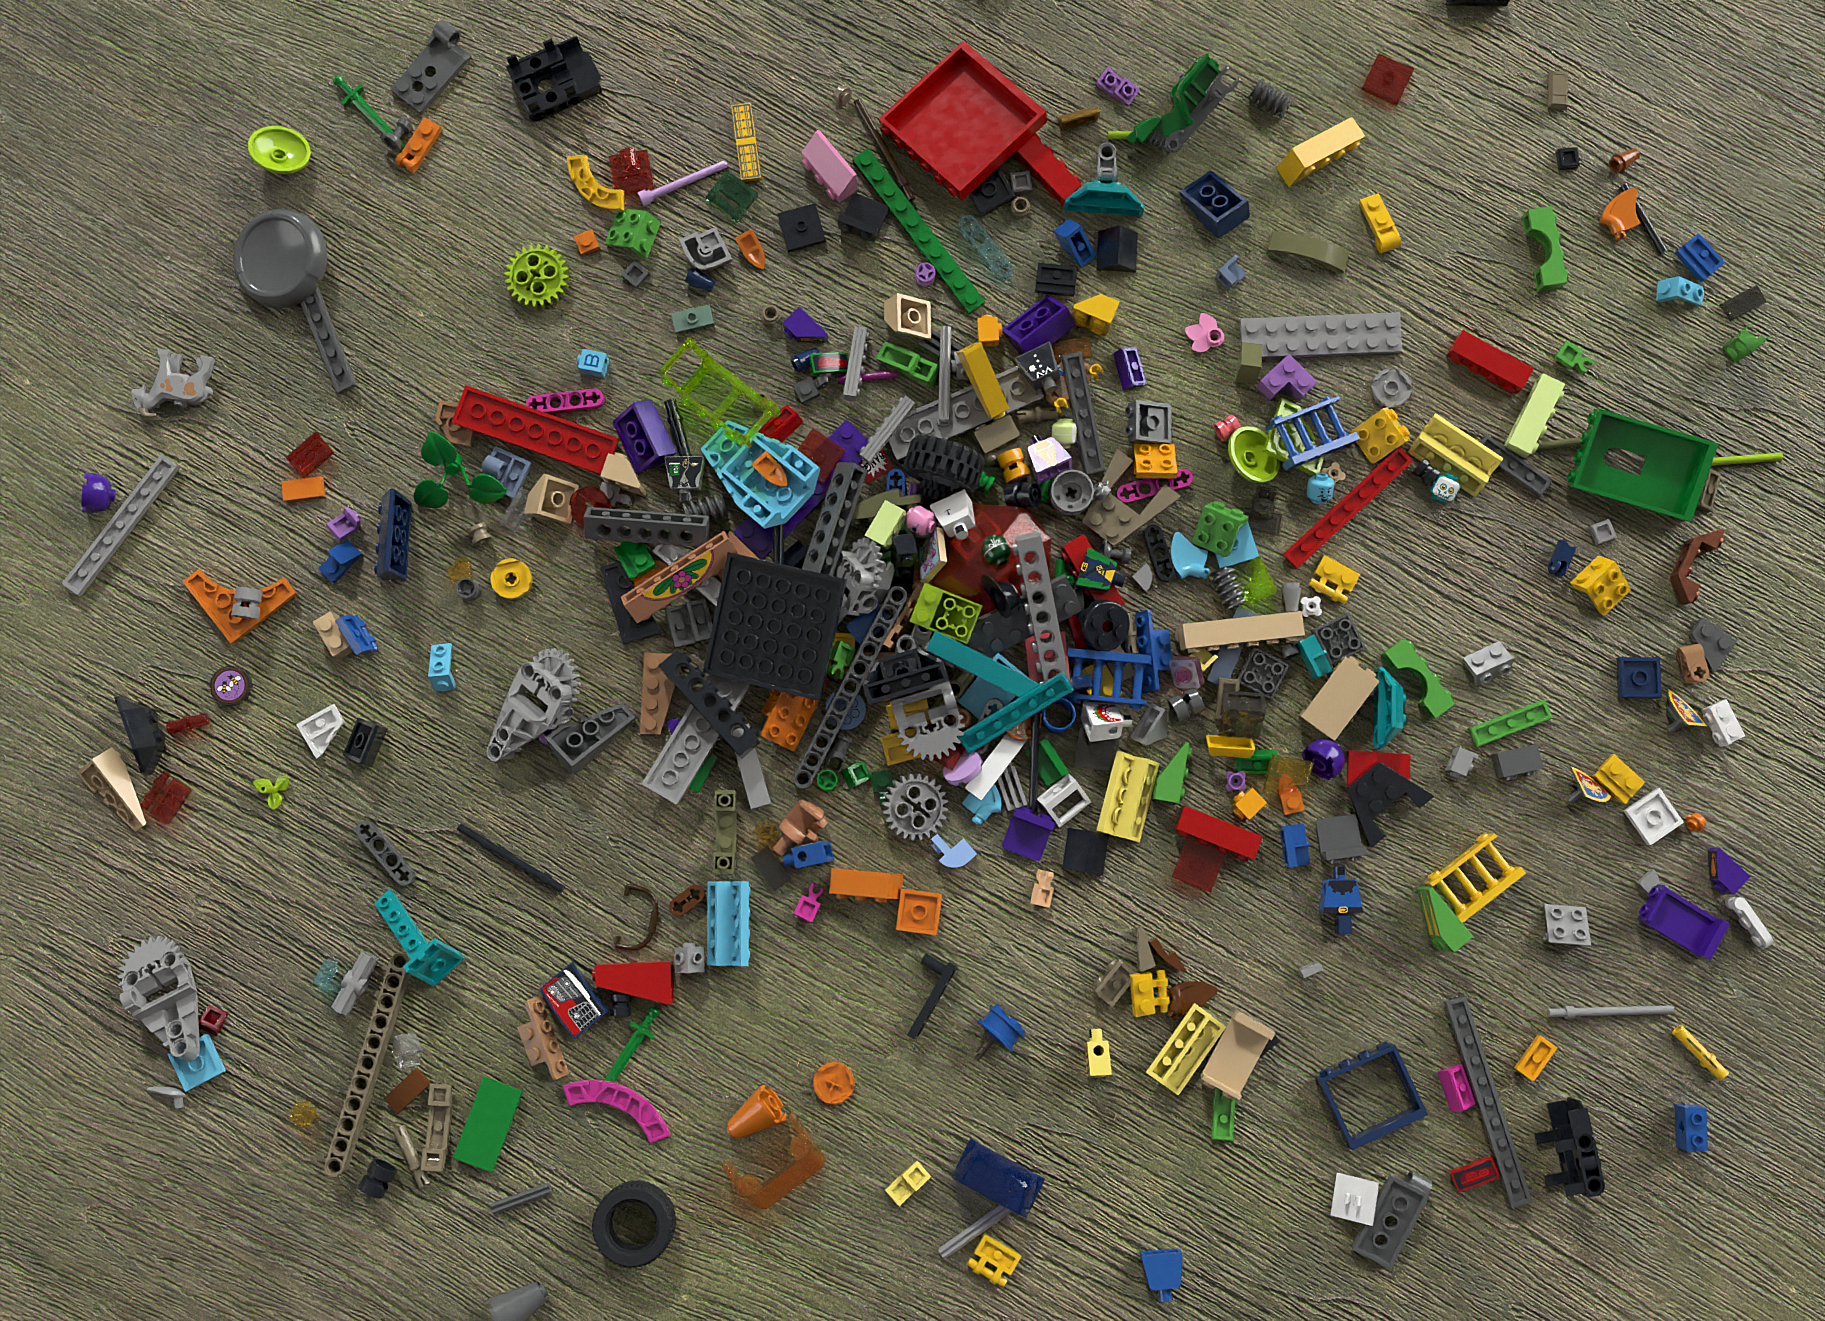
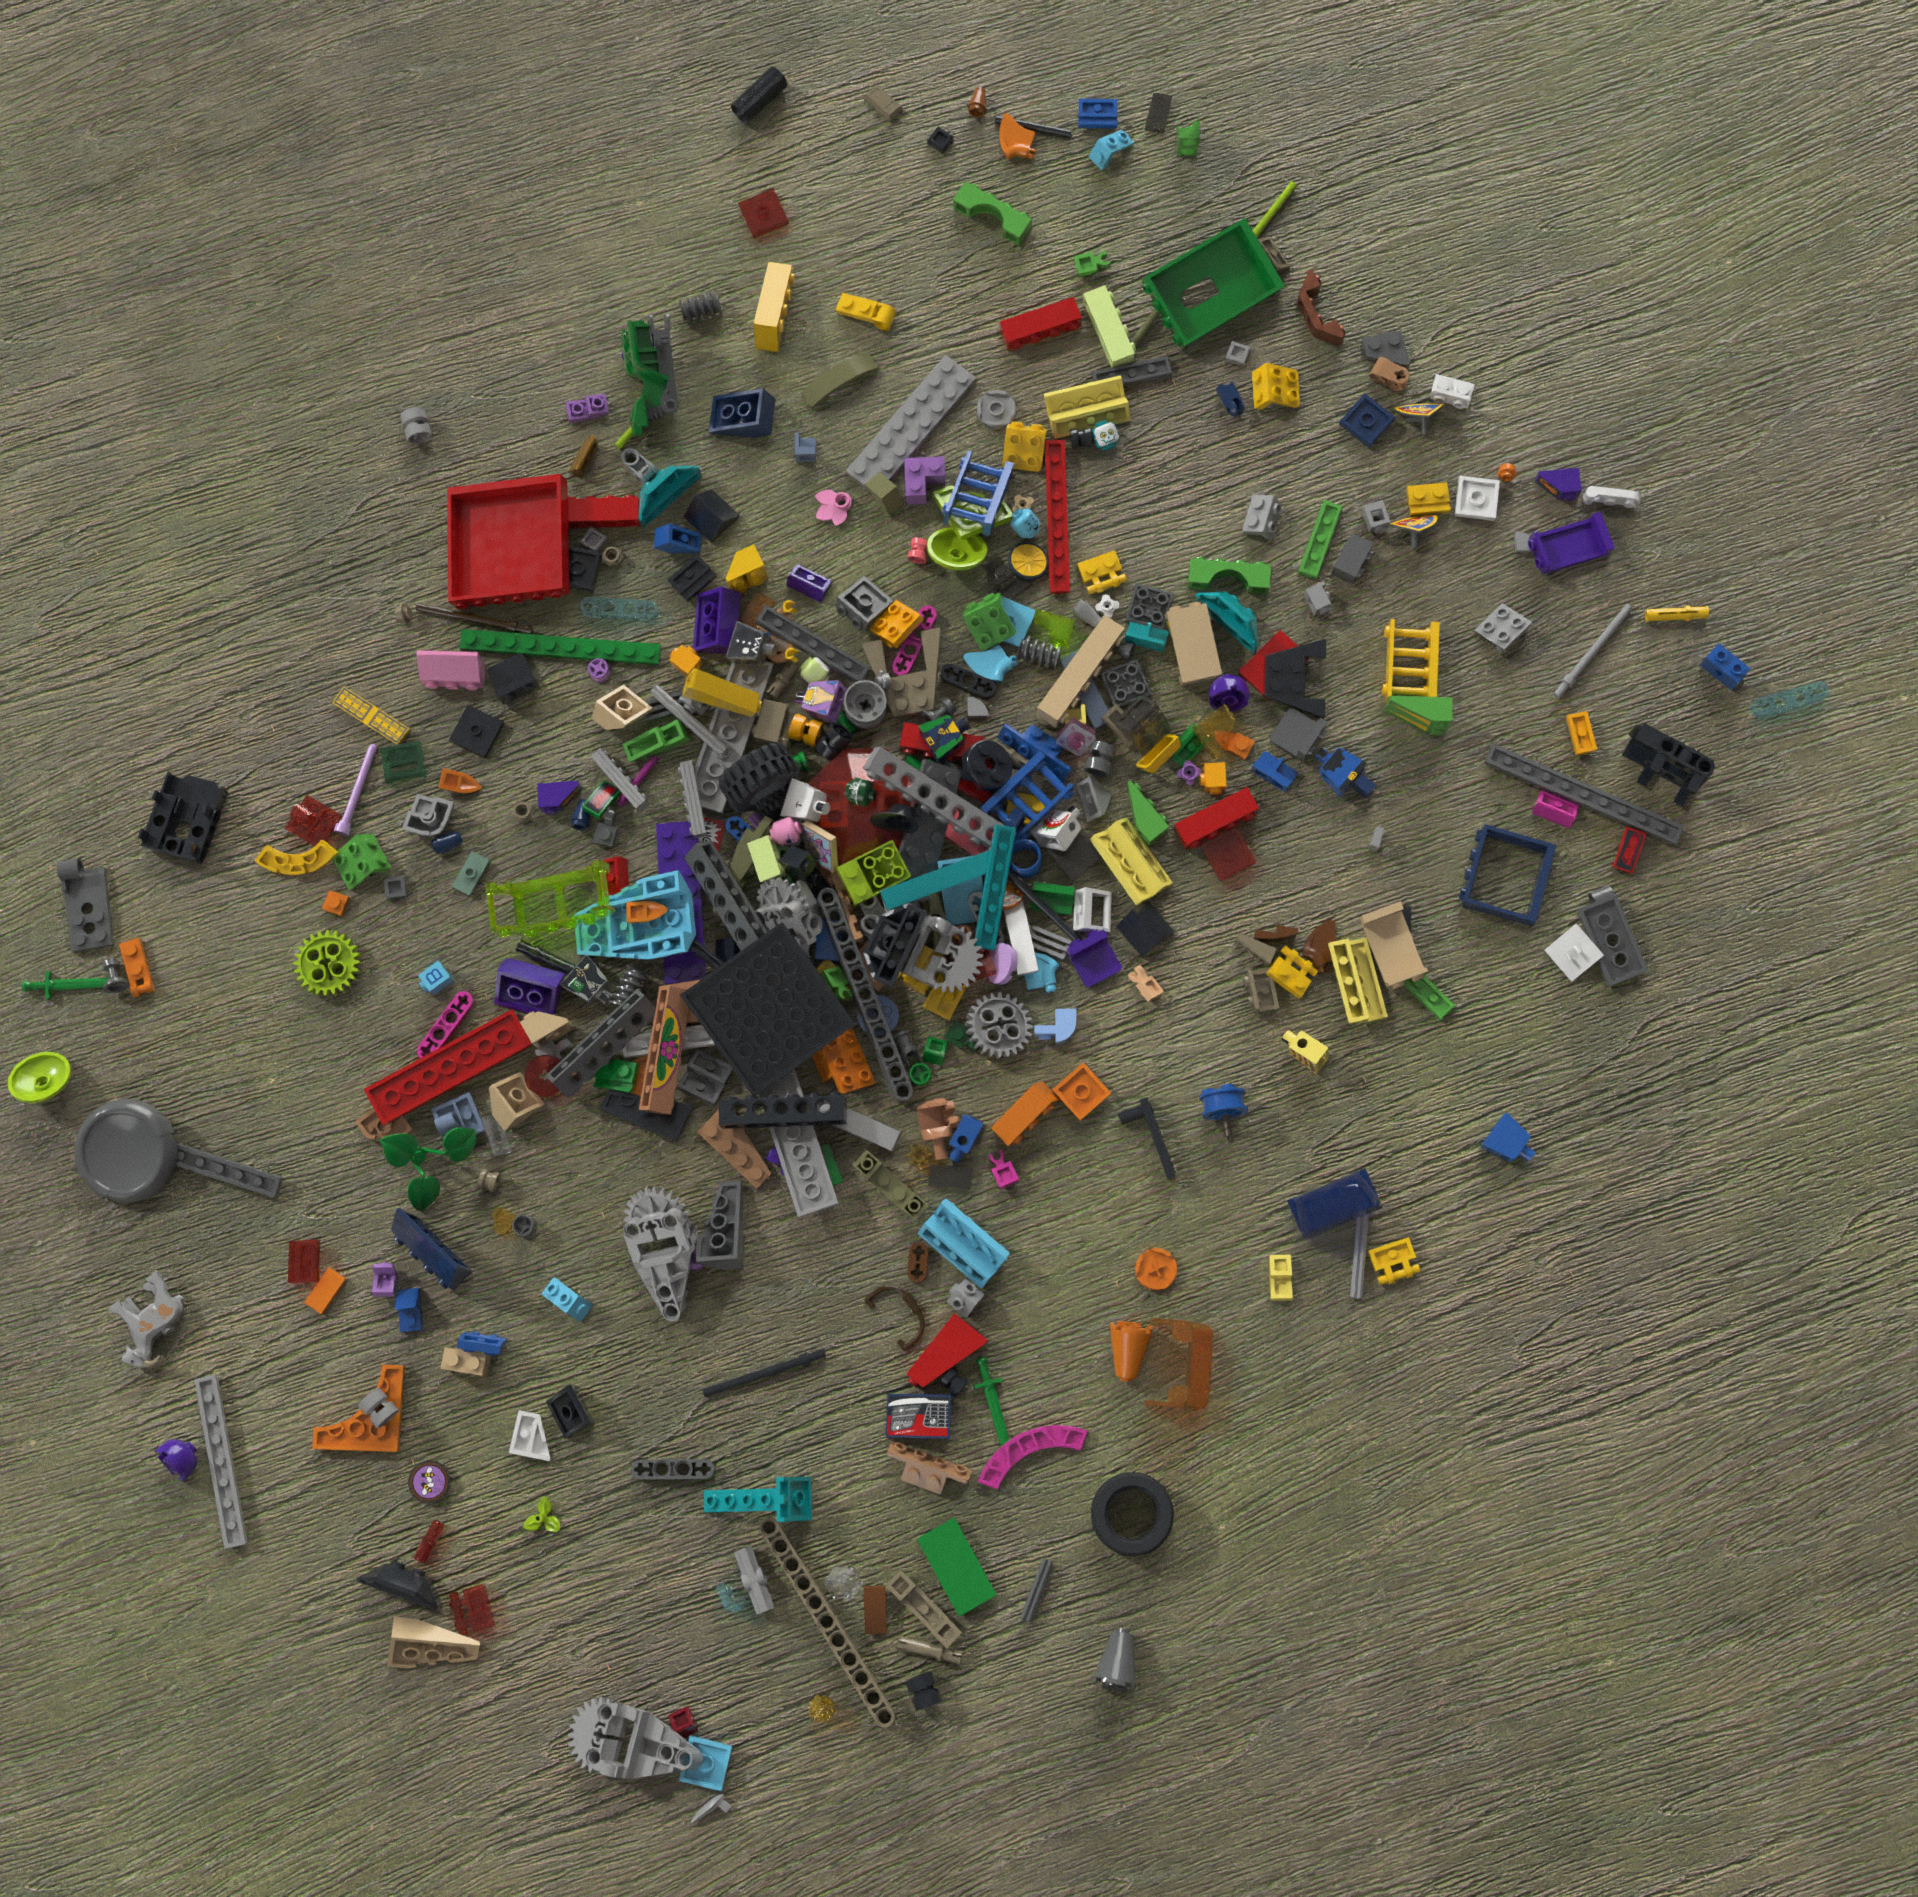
camera: 45 degrees left, 5 degrees down
(502, 573) = (543, 1174): yellow plate -> none
(822, 452) = (665, 860): clear red plate -> none
(1293, 516) = (1028, 561): none -> yellow wheel
(1573, 750) = (1376, 511): none -> light grey brick
(1710, 1200) = (1790, 701): none -> clear light blue beam

